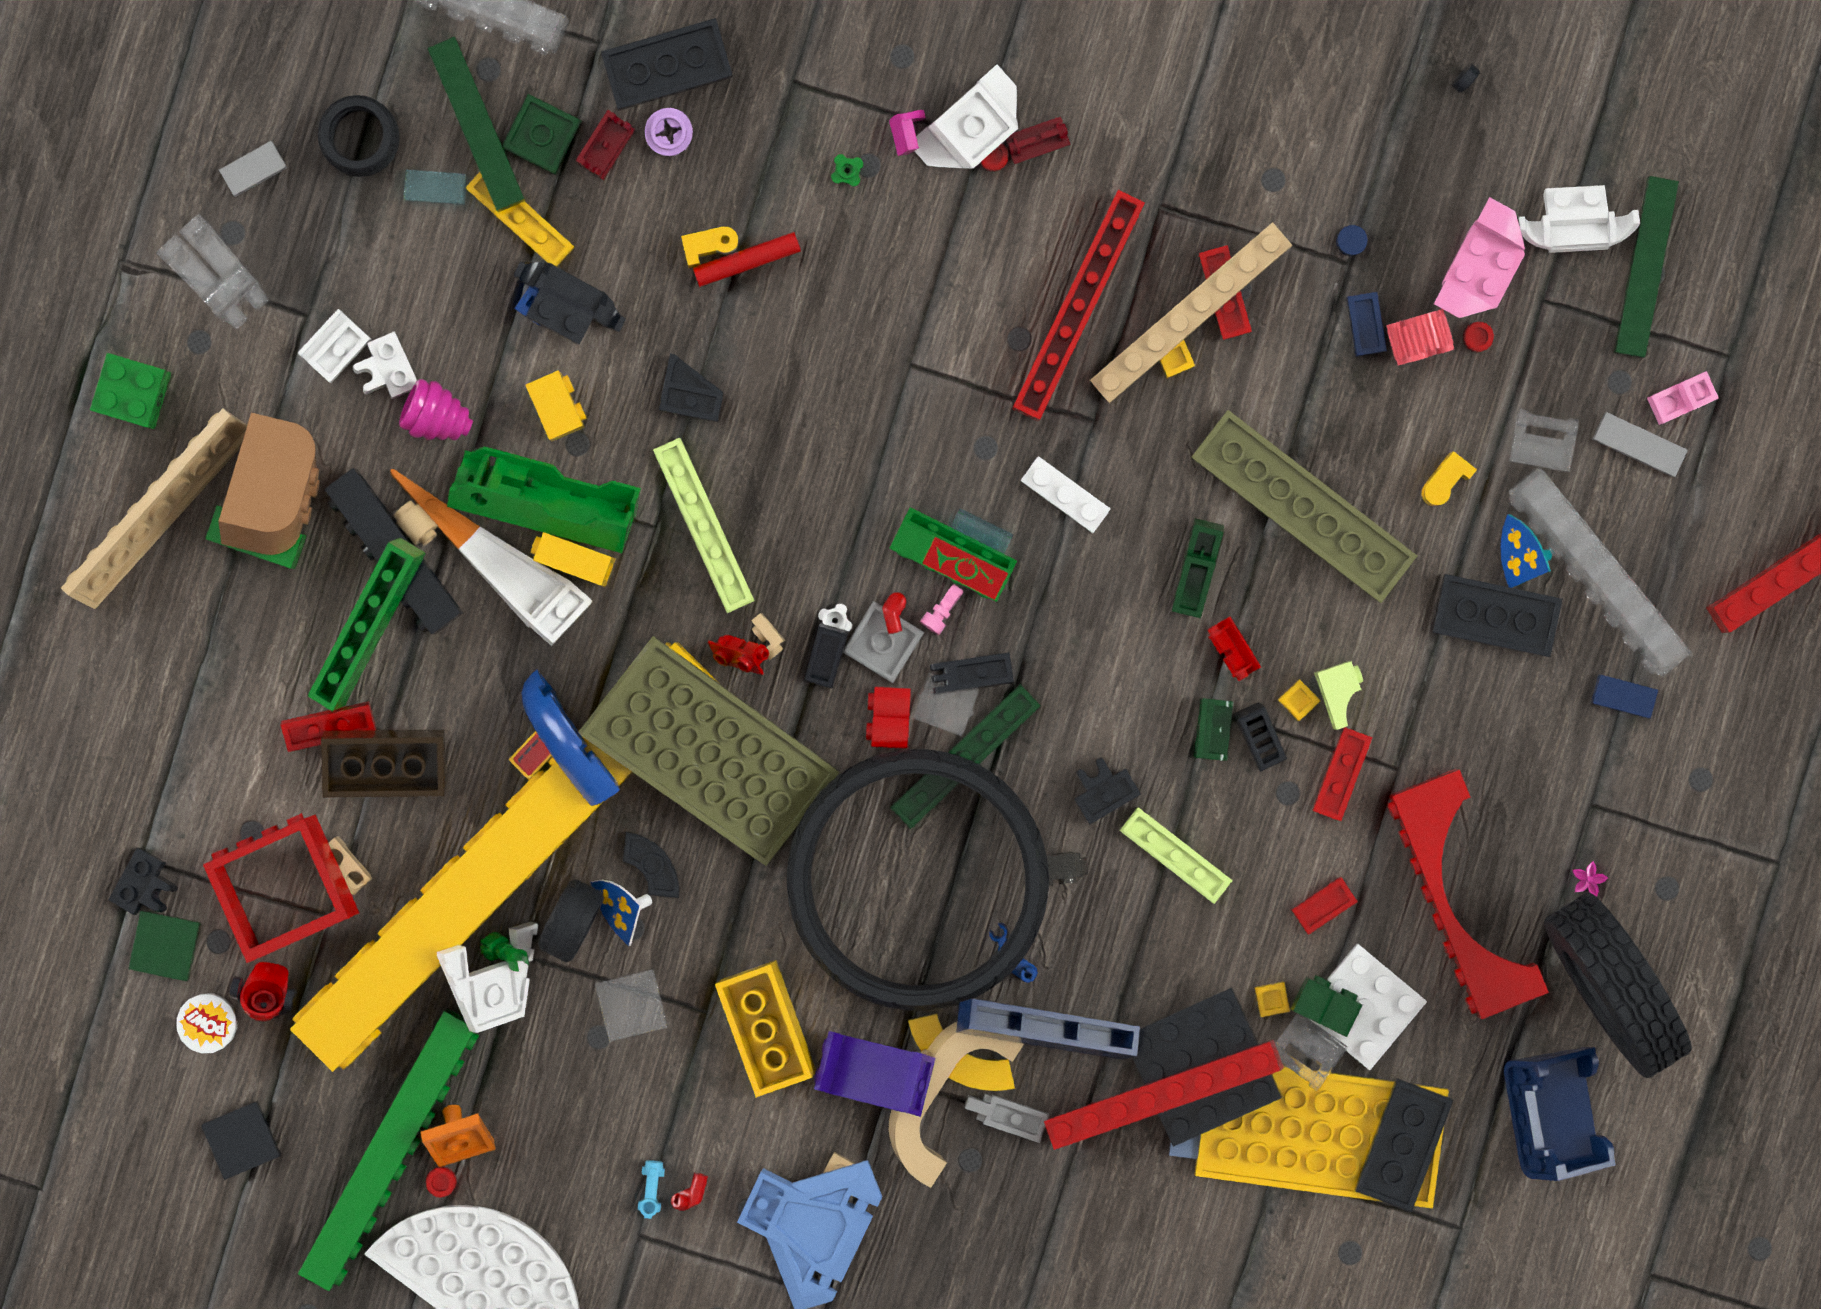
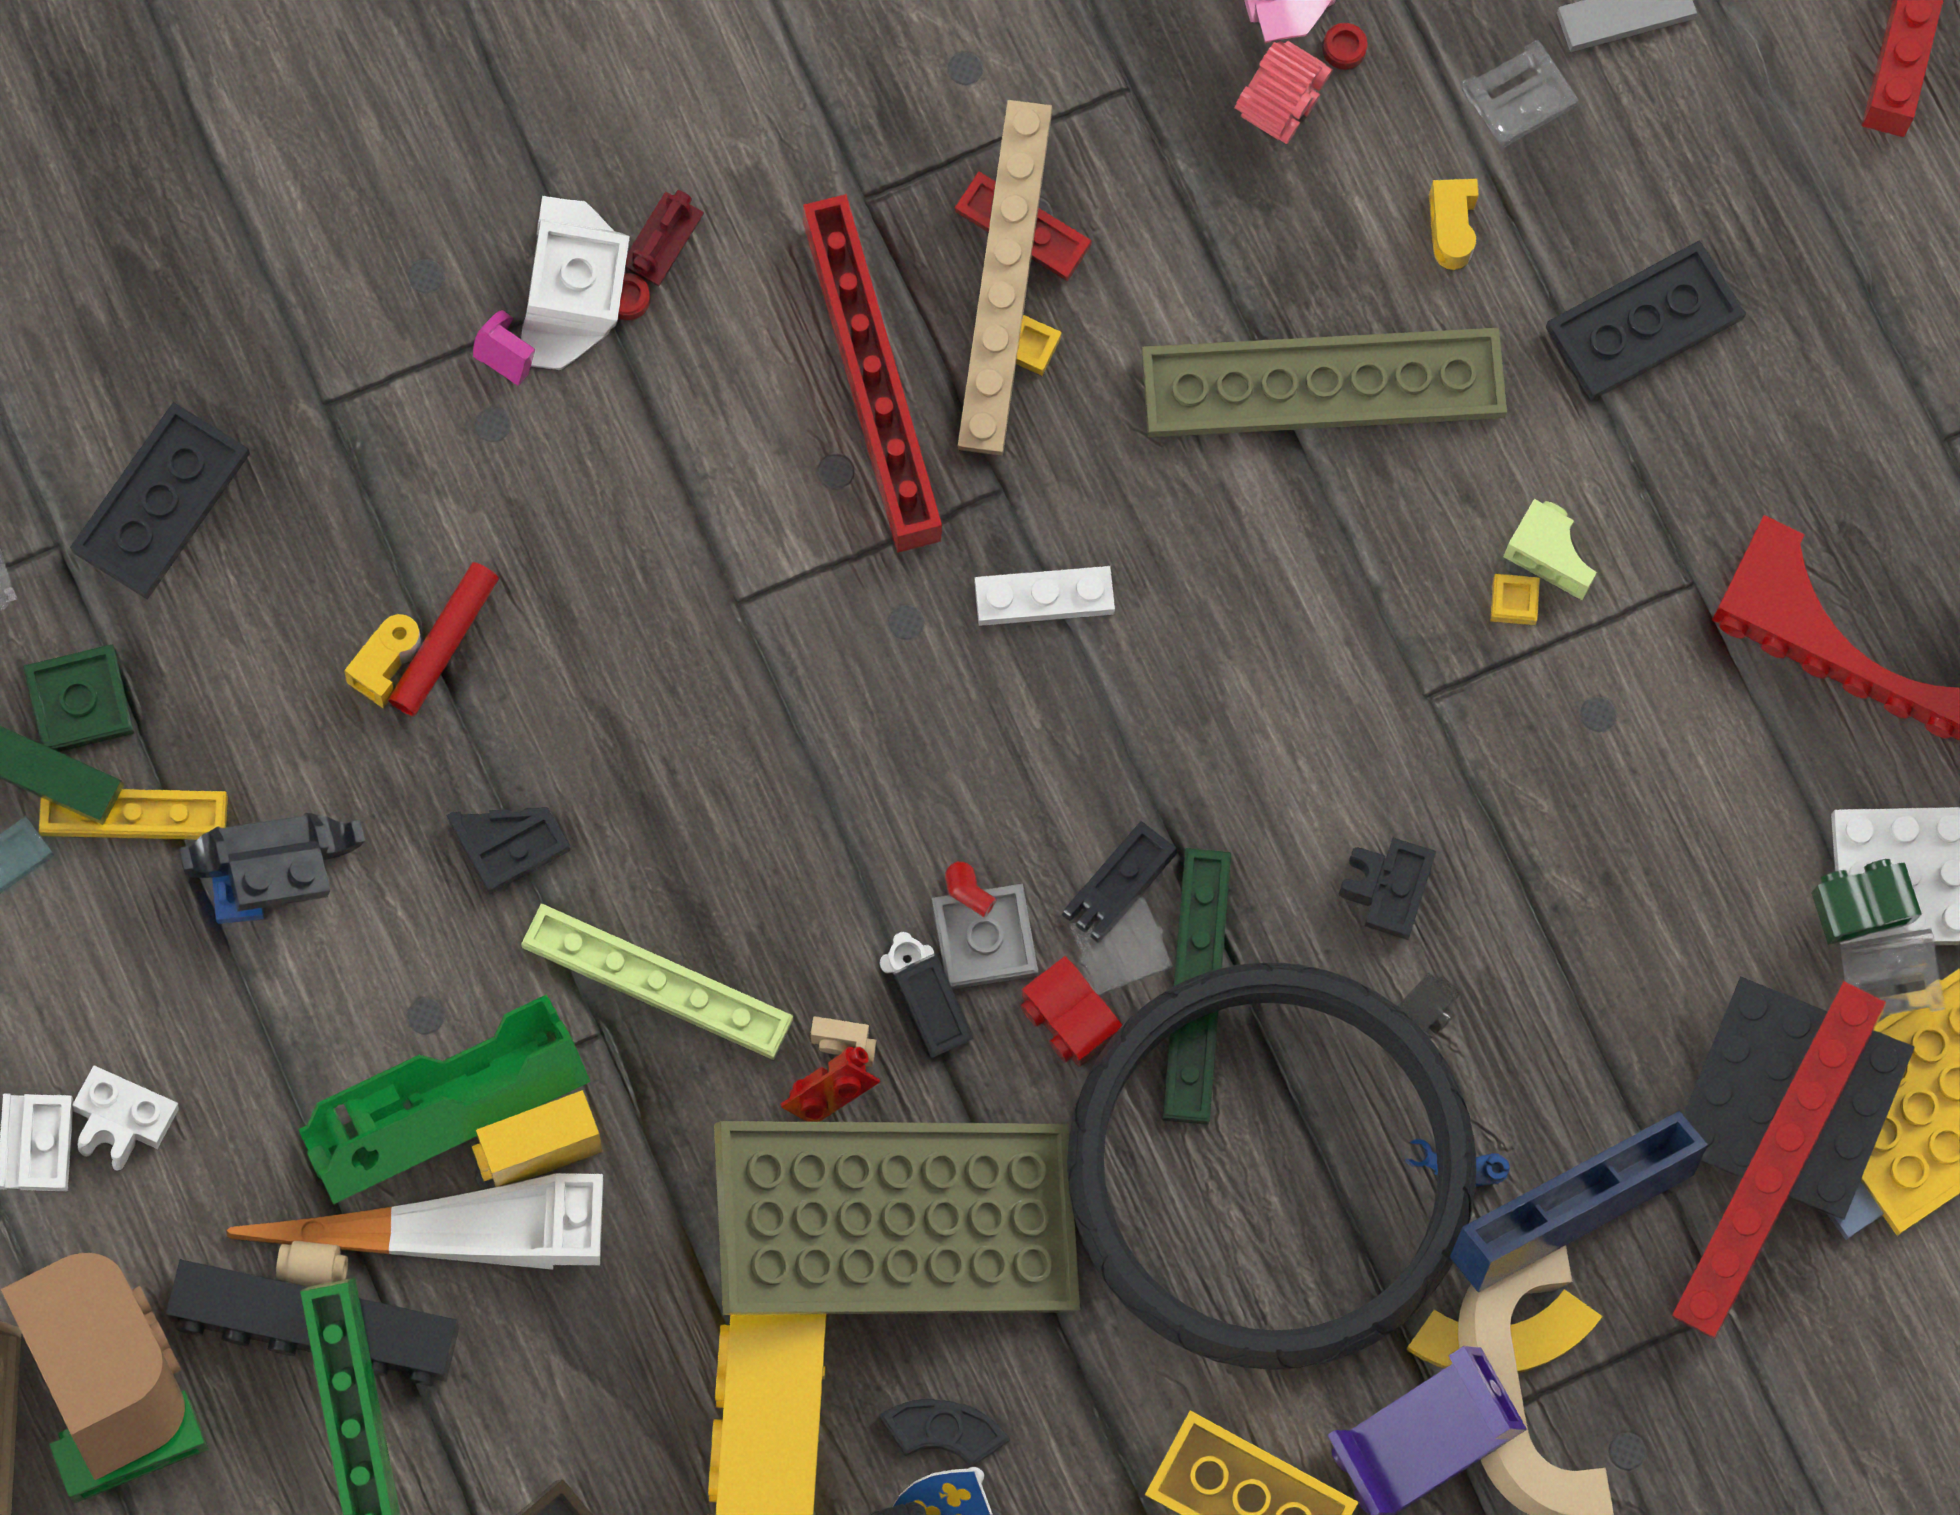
camera: 45 degrees left, 15 degrees down
(434, 413) = (223, 1115): dark pink piece -> none
(531, 756) = (689, 1405): red slope -> none
(555, 405) = (362, 985): yellow brick -> none
(565, 742) = (716, 1353): blue brick -> none
(605, 145) = (165, 647): dark red hinge -> none
(655, 126) = (224, 554): lavender gear -> none
(848, 178) = (472, 459): green plate -> none
(934, 621) = (1023, 860): bright pink piece -> none
(953, 554) = (978, 765): green brick -> none
(982, 531) = (988, 720): clear light blue plate -> none
(1008, 1116) = (1625, 1355): light grey hinge -> none
(1175, 855) = (1538, 890): yellowish green tile -> none
(1198, 568) = (1268, 548): dark green slope -> none
(1213, 729) = (1448, 711): dark green hinge -> none
(1230, 642) = (1390, 600): red hinge -> none
(1253, 712) = (1502, 688): black slope -> none
(1272, 999) = (1797, 958): yellow tile -> none
(1324, 905) = (1756, 802): red tile -> none
(1342, 774) = (1639, 637): red plate -> none
(1351, 240) = (1111, 59): dark blue tile -> none
(1366, 324) = (1210, 133): dark blue tile -> none
(1522, 553) = (1609, 227): blue shield -> none
(1599, 572) = (1712, 180): clear brick -> none
(1624, 696) = (1865, 291): dark blue tile -> none

